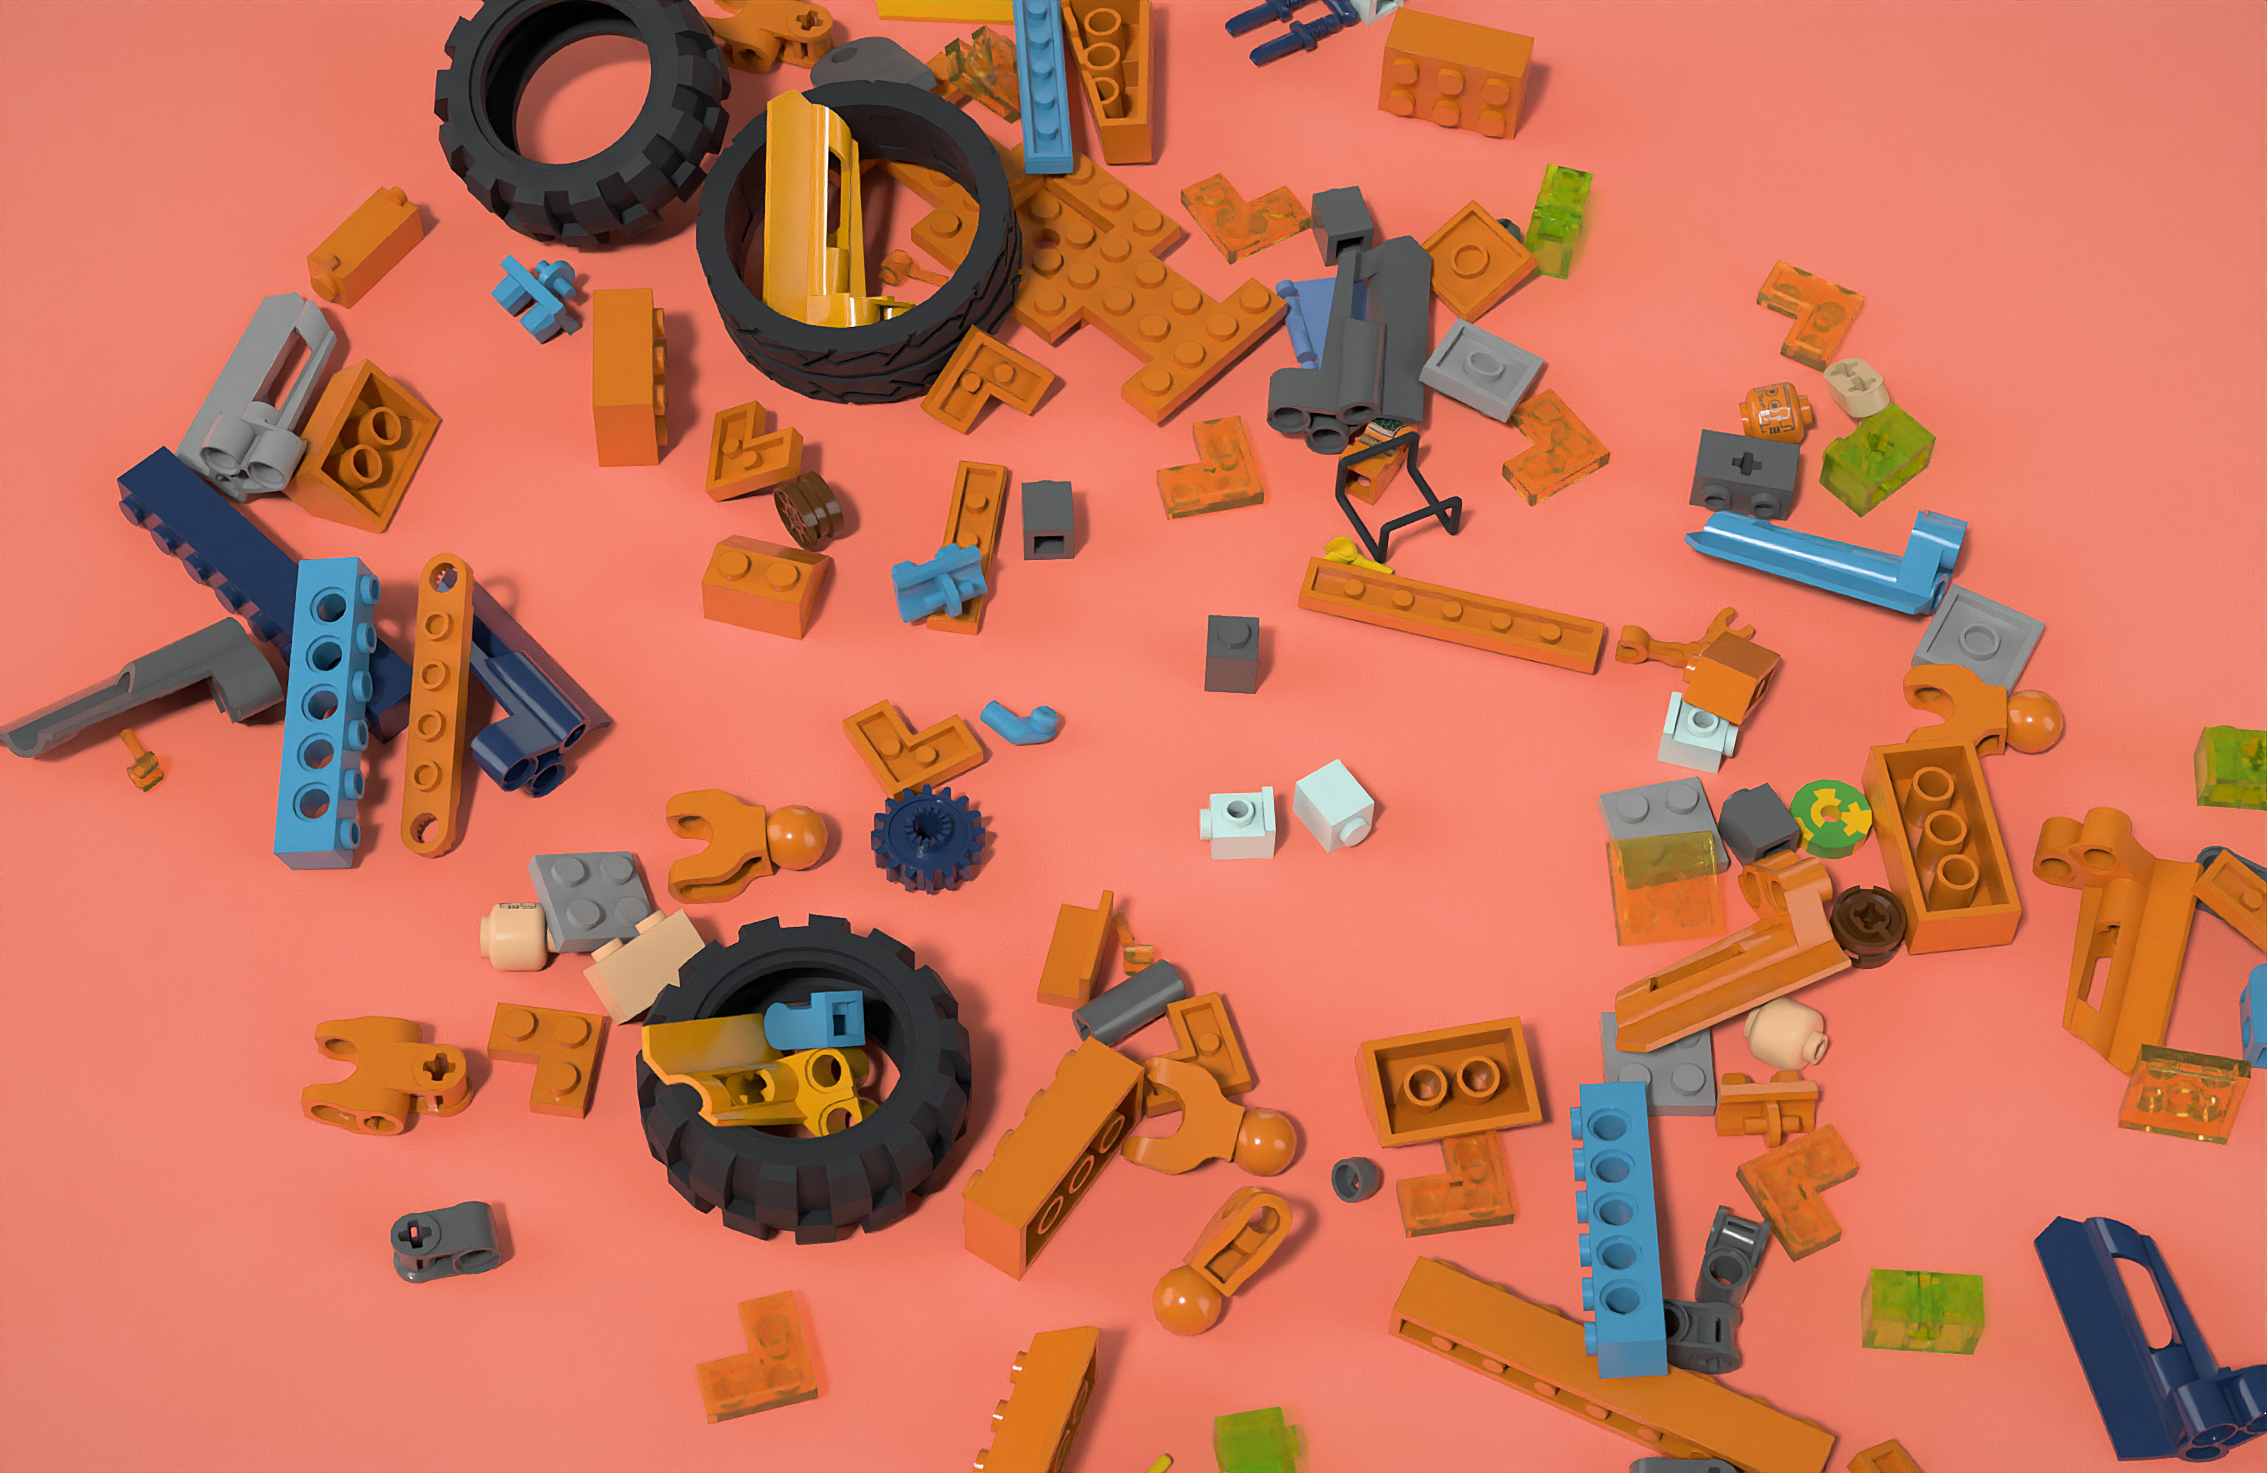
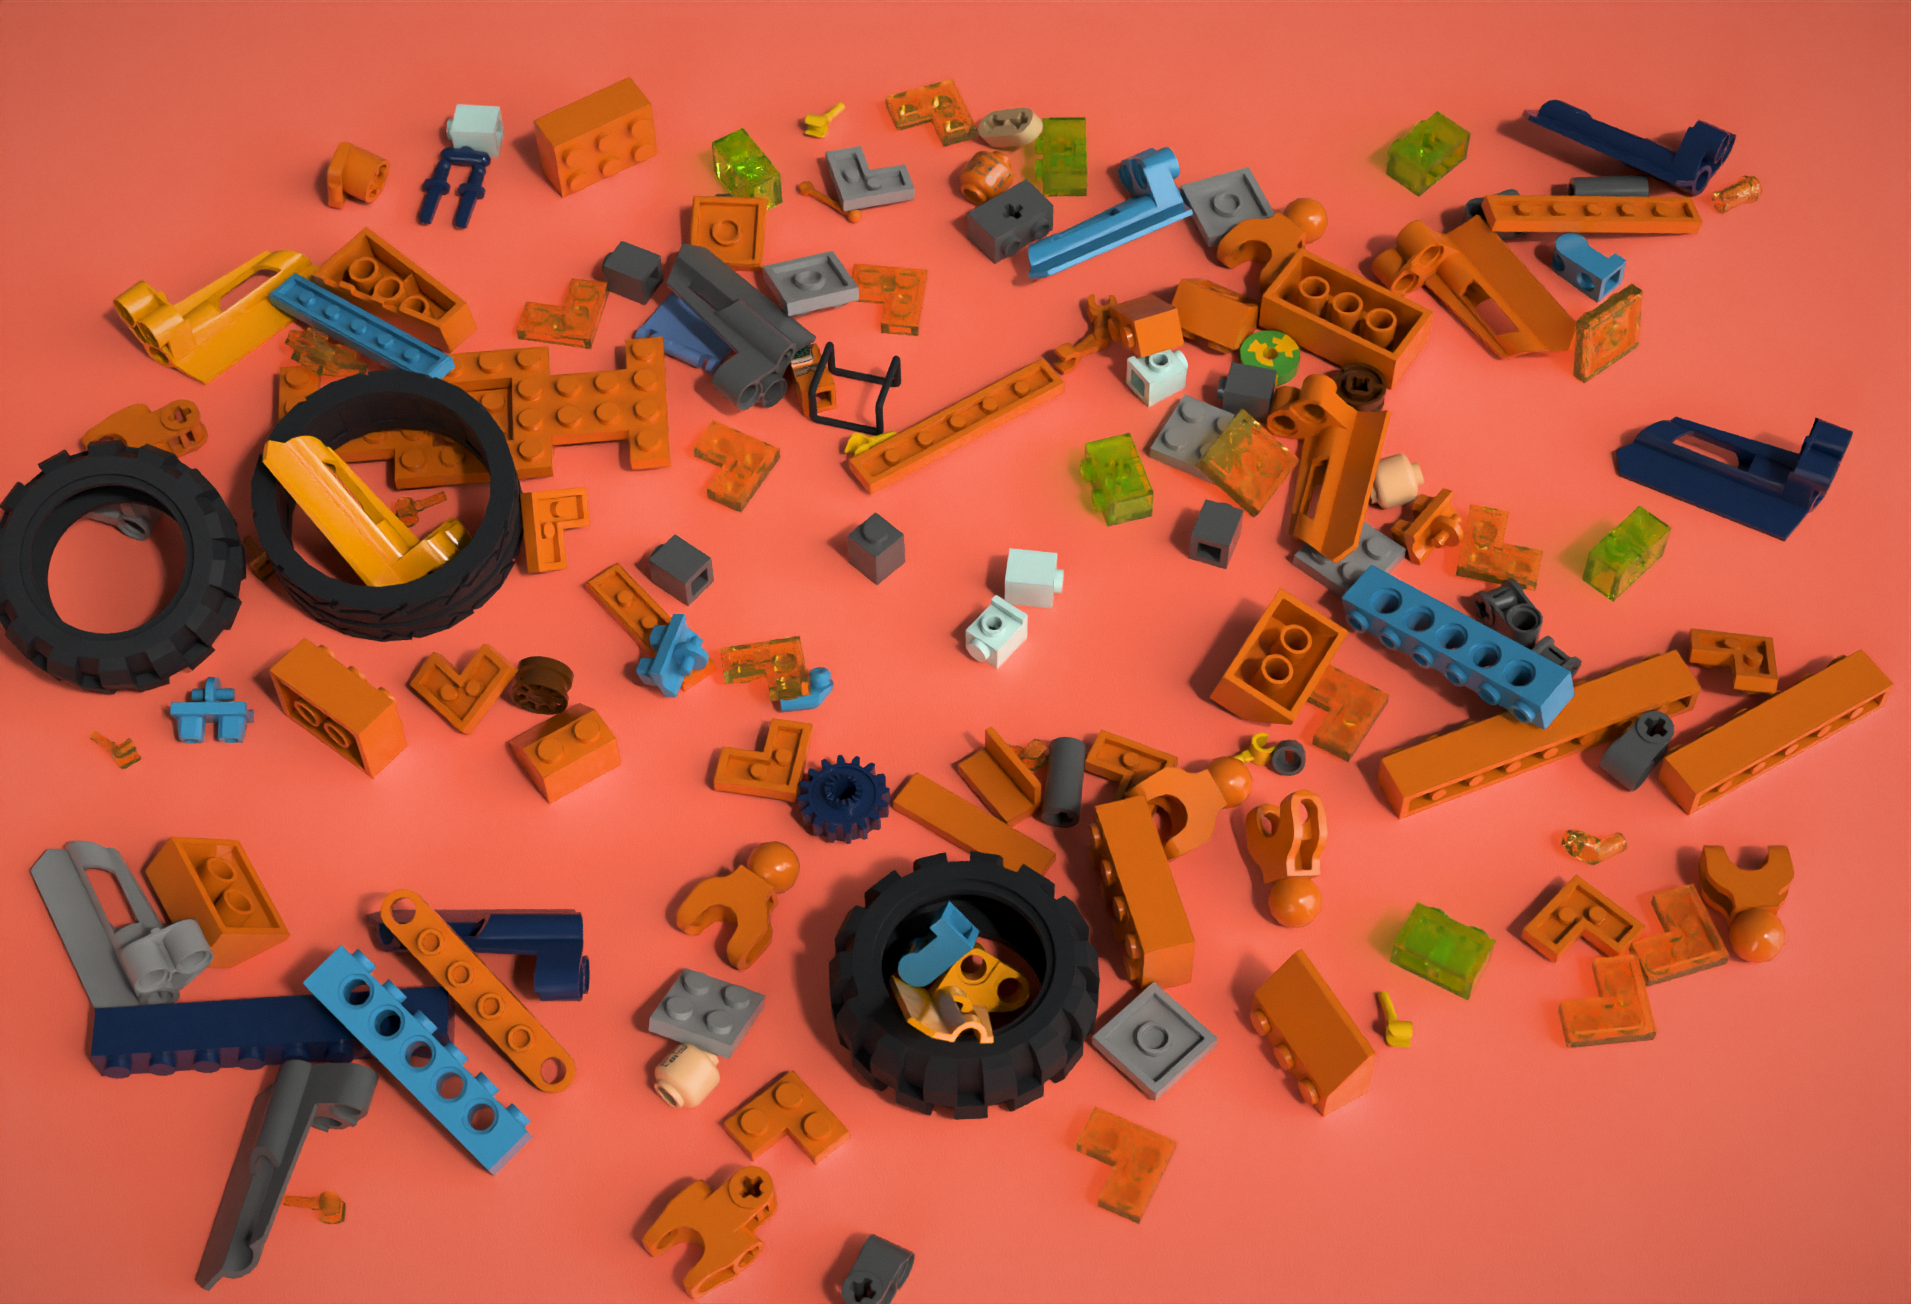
camera: 45 degrees left, 0 degrees up
(365, 247) = (61, 782): orange brick -> none
(443, 268) = (123, 753): none -> hand
(634, 973) = (788, 1015): light nougat brick -> none
(872, 60) = (252, 415): dark grey tile -> none
(914, 1292) = (1154, 1041): none -> light grey plate
(1005, 974) = (969, 825): none -> orange tile
(1017, 668) = (776, 660): none -> clear yellow plate
(1341, 1137) = (1255, 753): none -> yellow hand
(1527, 793) = (1117, 479): none -> clear neon green brick
(1554, 924) = (1216, 534): none -> dark grey brick
(1603, 286) = (807, 189): none -> orange hinge
(1651, 325) = (862, 187): none -> light grey plate
(1689, 237) = (819, 124): none -> yellow hand
(1823, 724) = (1215, 313): none -> orange slope

